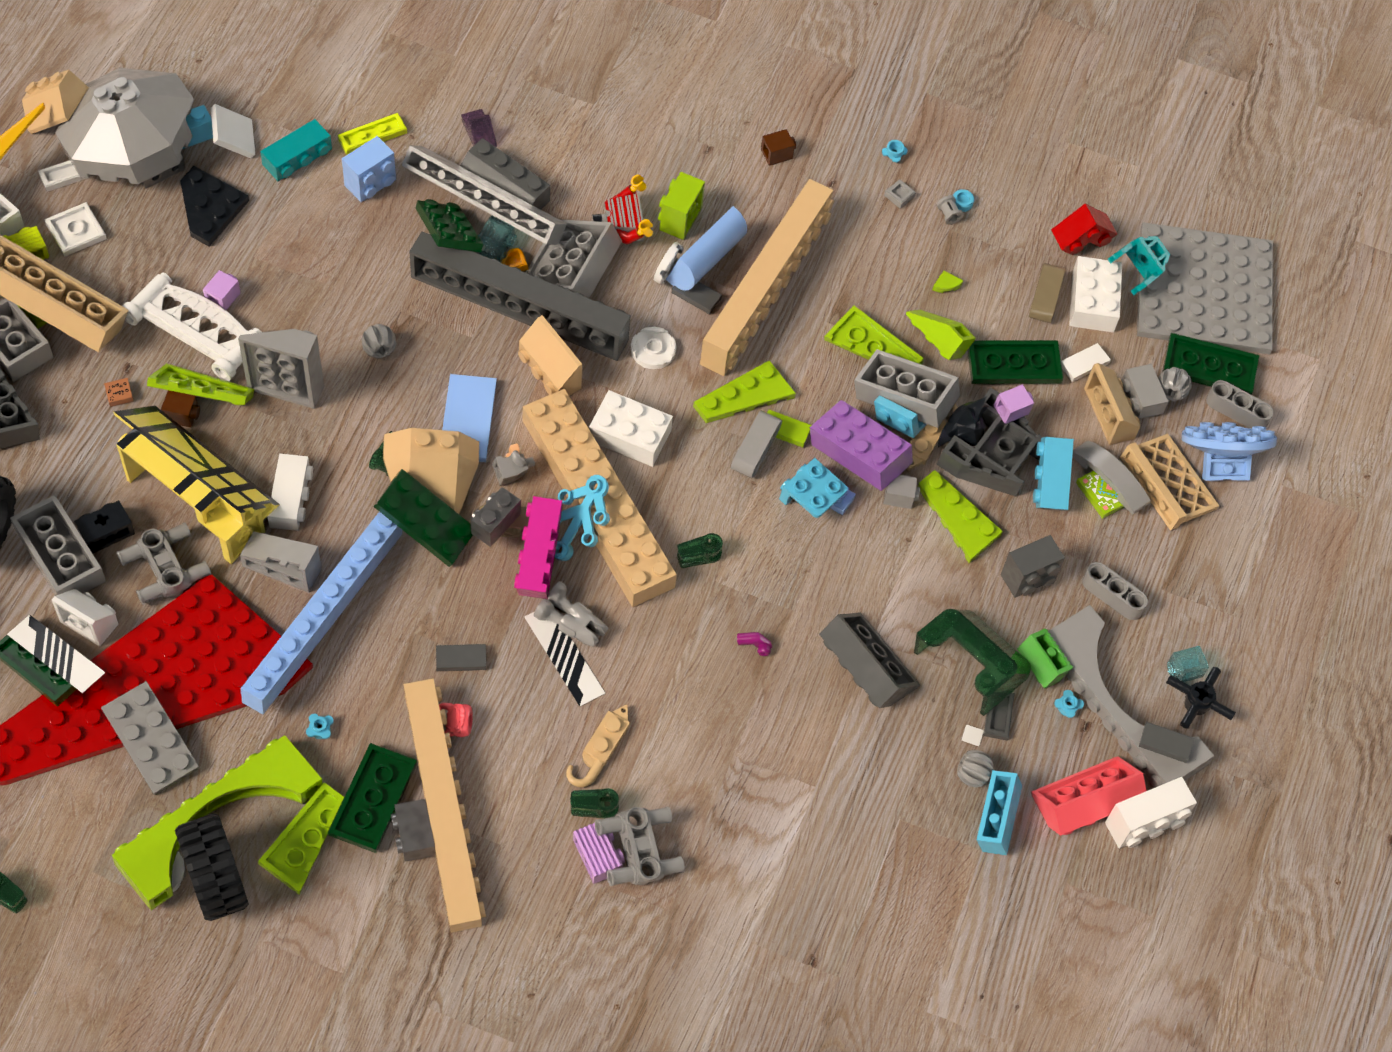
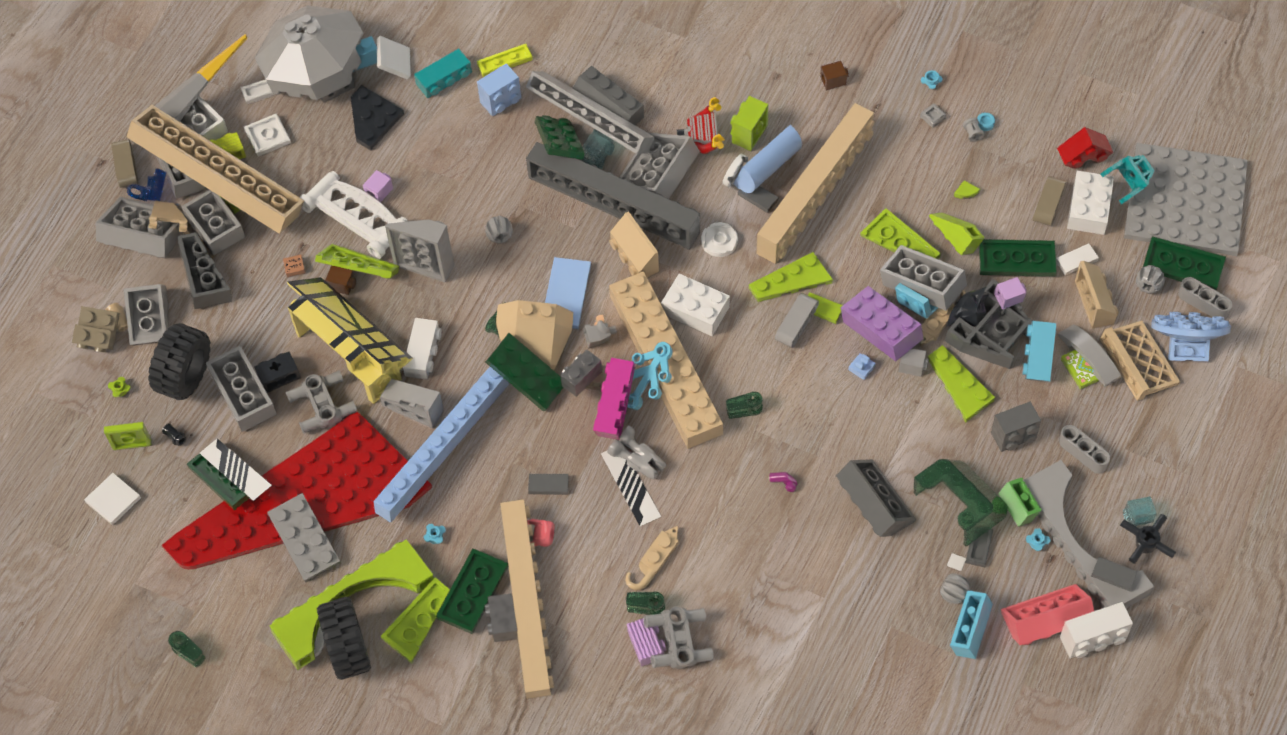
camera: 15 degrees right, 0 degrees up
(60, 96) = (258, 27): tan slope -> none
(85, 615) = (259, 440): white slope -> none
(478, 127) = (590, 56): clear purple slope -> none
(516, 259) = (612, 165): light orange tile -> none
(813, 488) = (840, 357): medium azure bracket -> none
(1144, 391) = (1123, 285): light grey brick -> none

